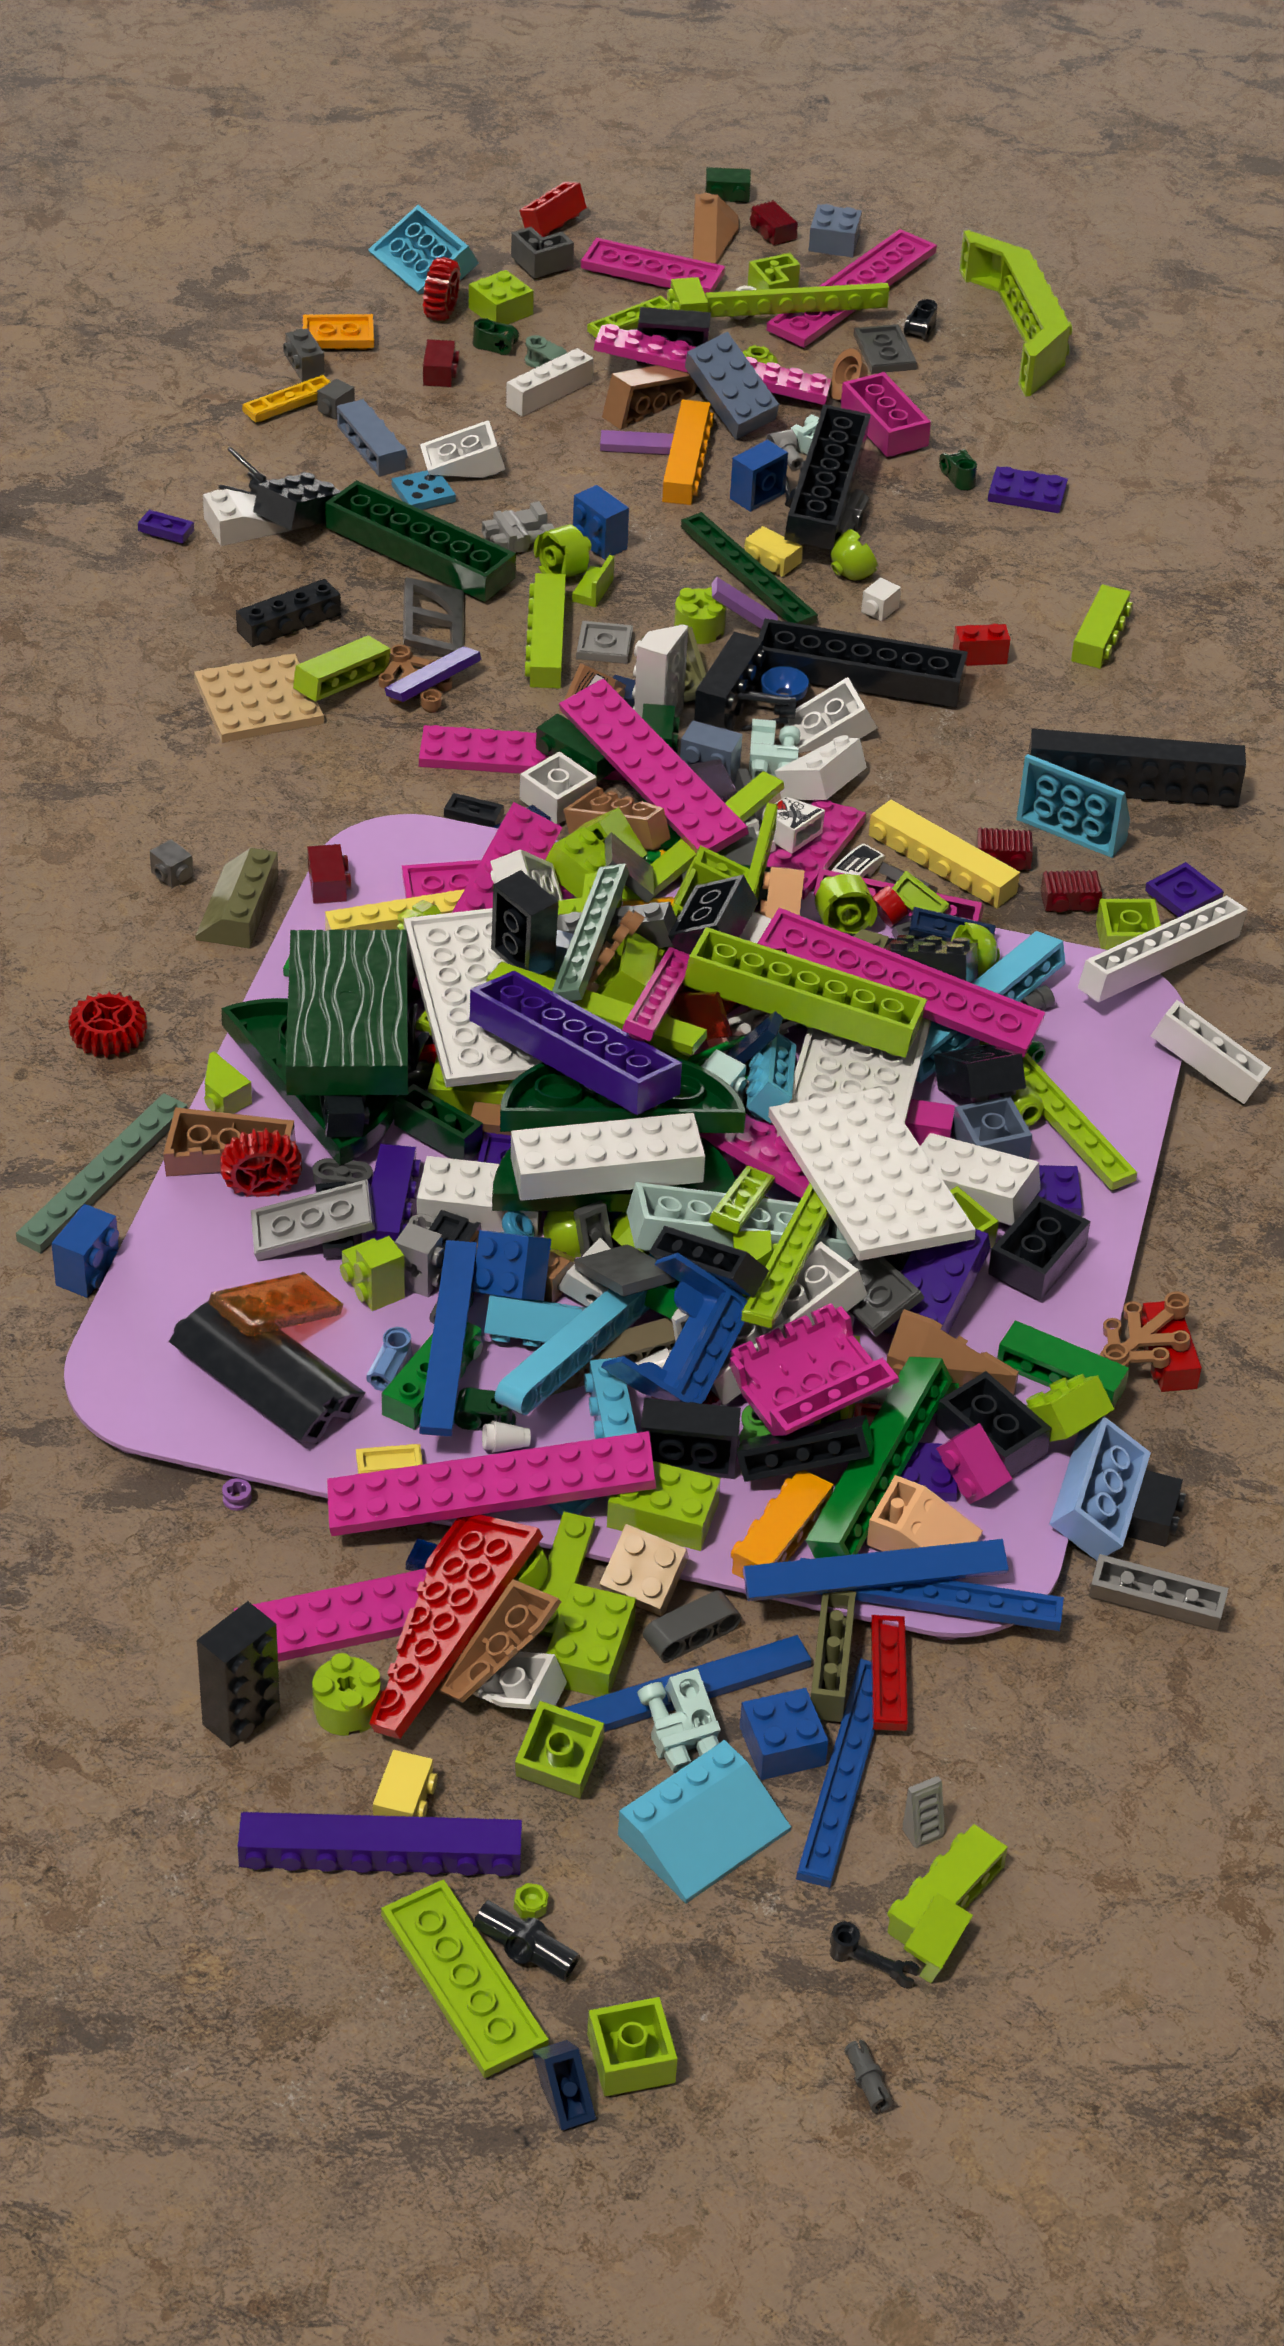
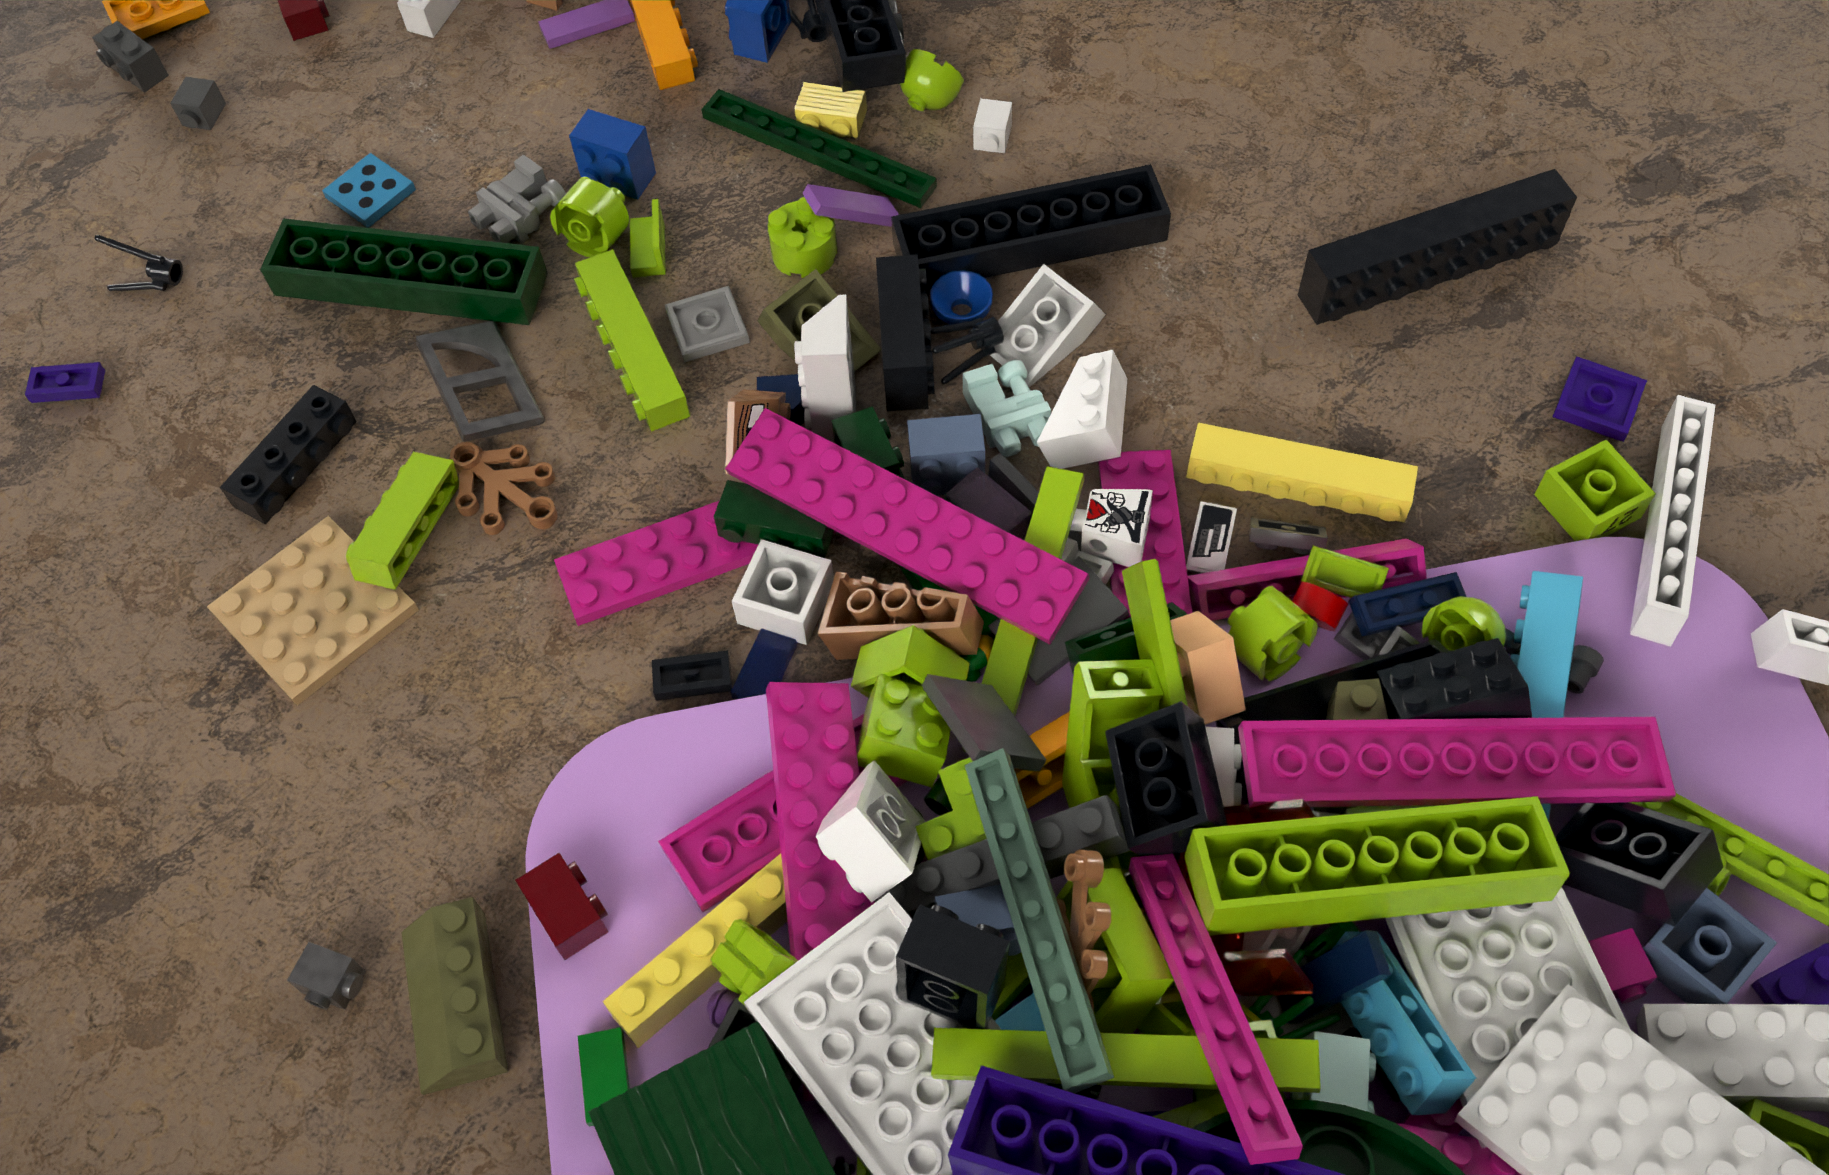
camera: 20 degrees left, 15 degrees up
(233, 519) = (160, 324): white slope -> none
(284, 400) = (134, 128): yellow plate -> none
(294, 500) = (218, 280): black brick -> none
(371, 437) = (268, 141): sand blue brick -> none
(433, 674) = (525, 474): tile -> none
(464, 453) = (394, 120): white slope -> none
(983, 643) = (1145, 140): red brick -> none
(1007, 846) = (1366, 429): dark red brick -> none
(1071, 890) = (1481, 461): dark red brick -> none
(1073, 807) = (1416, 341): medium azure slope -> none
(1102, 626) = (1254, 61): lime brick -> none

